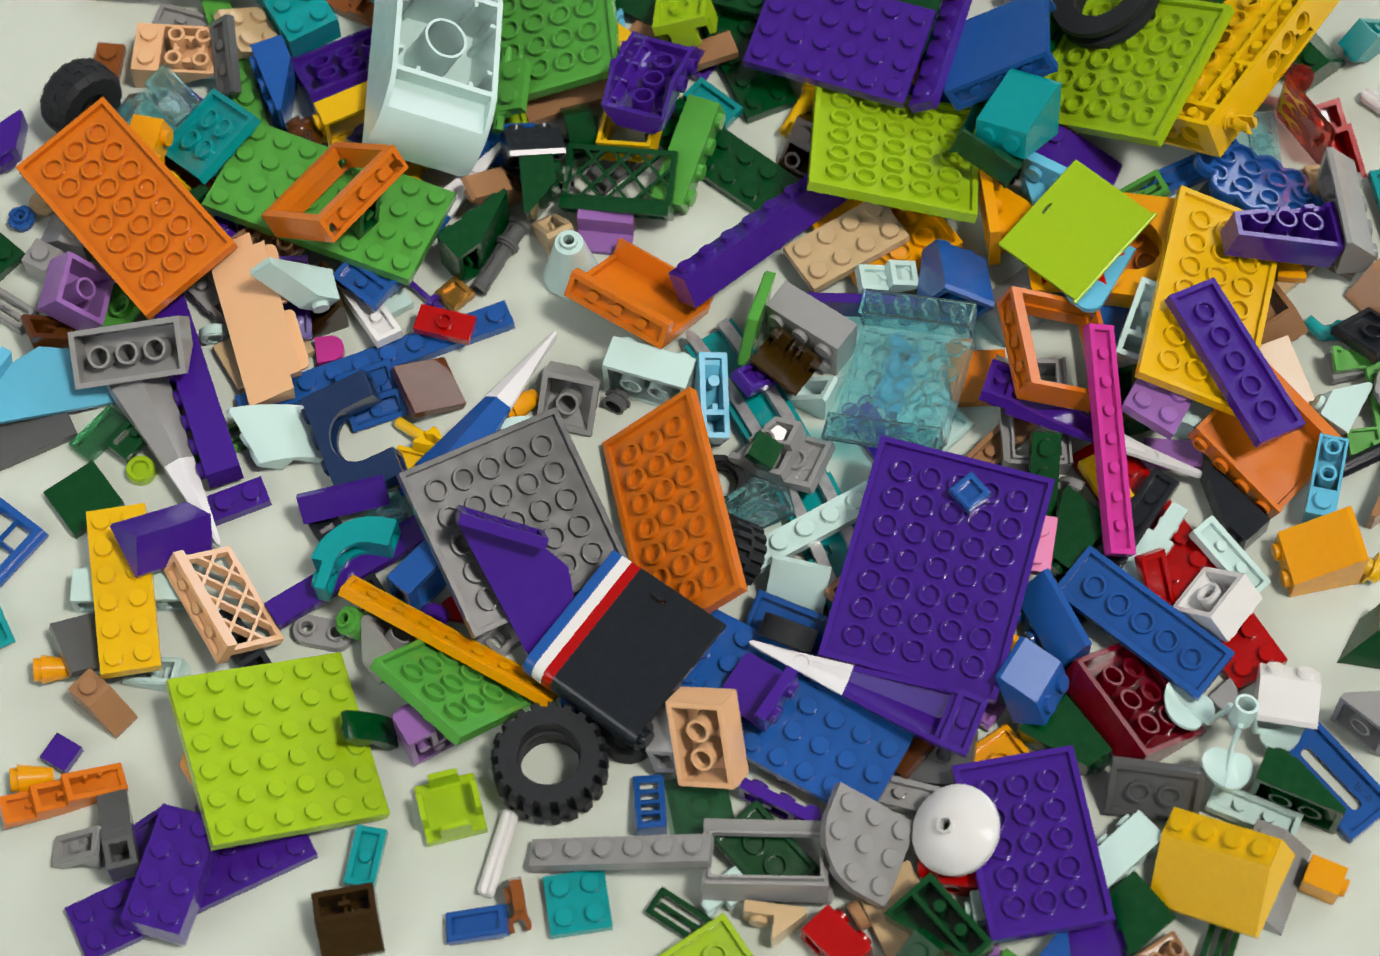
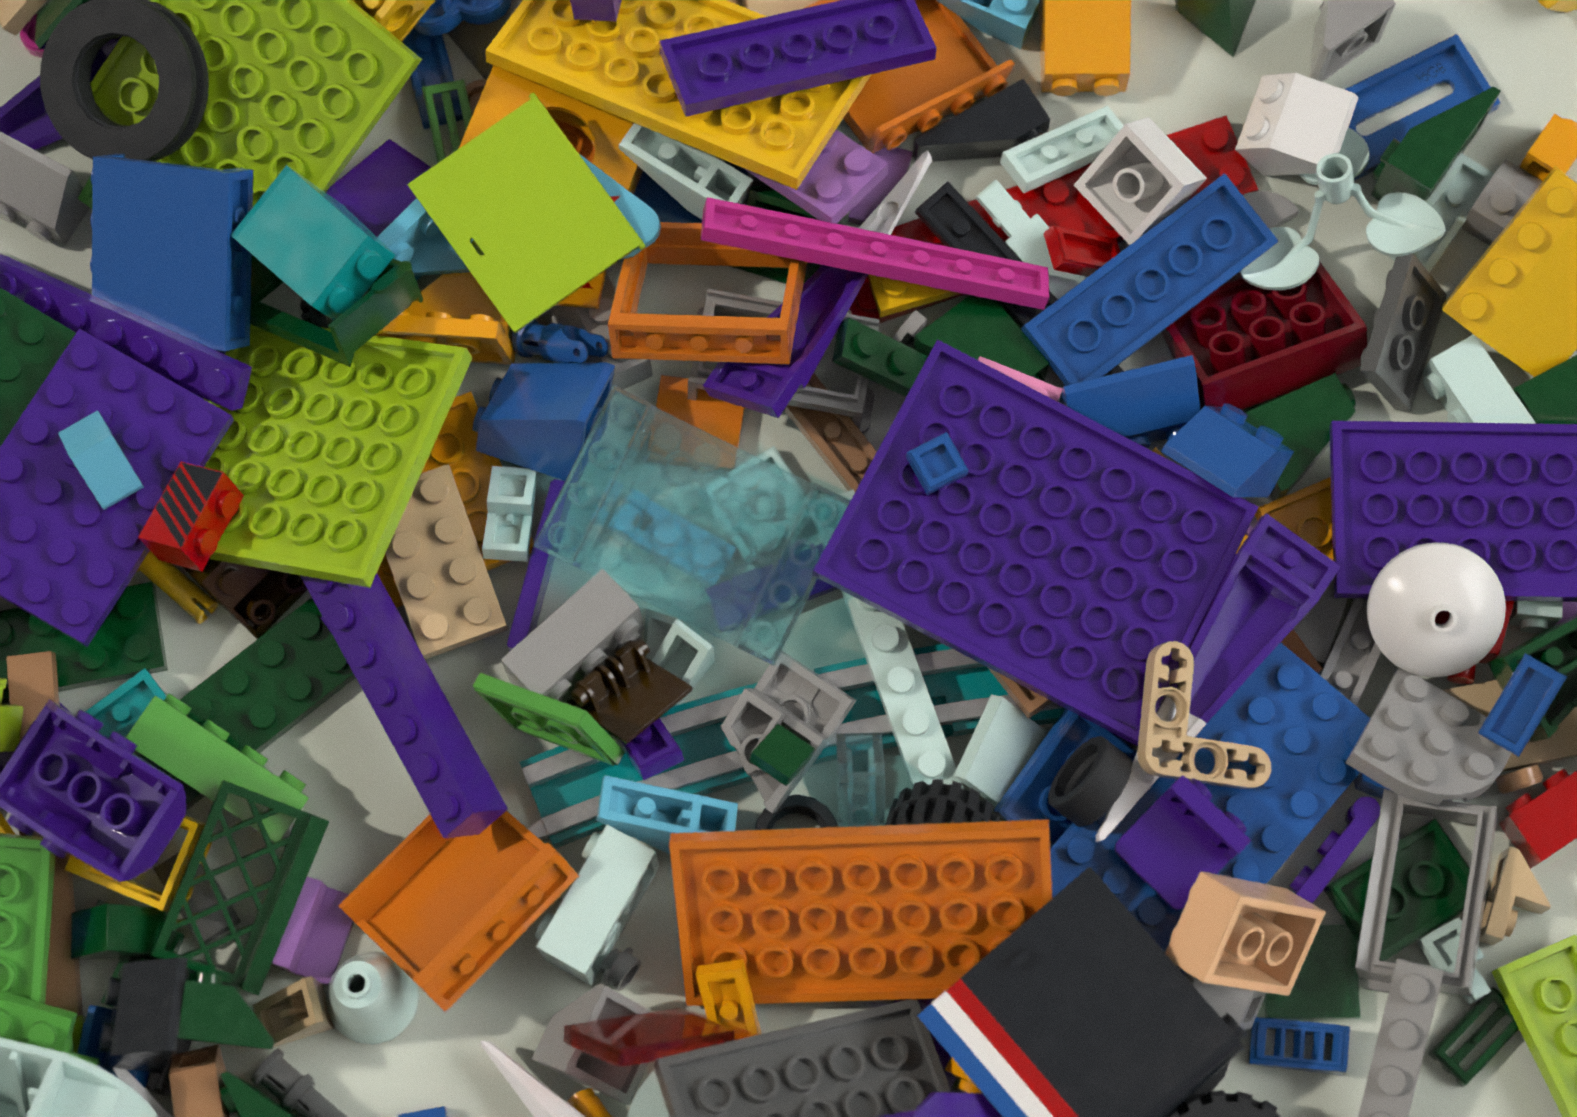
camera: 80 degrees left, 10 degrees up
(573, 409) = (646, 1036): none -> clear red tile
(607, 458) = (728, 997): none -> light orange plate
(828, 670) = (1174, 733): none -> tan beam
(832, 94) = (191, 516): none -> red brick
(853, 37) = (100, 460): none -> medium azure slope
(900, 888) = (1522, 704): none -> blue tile
(1005, 273) = (558, 343): none -> blue piece

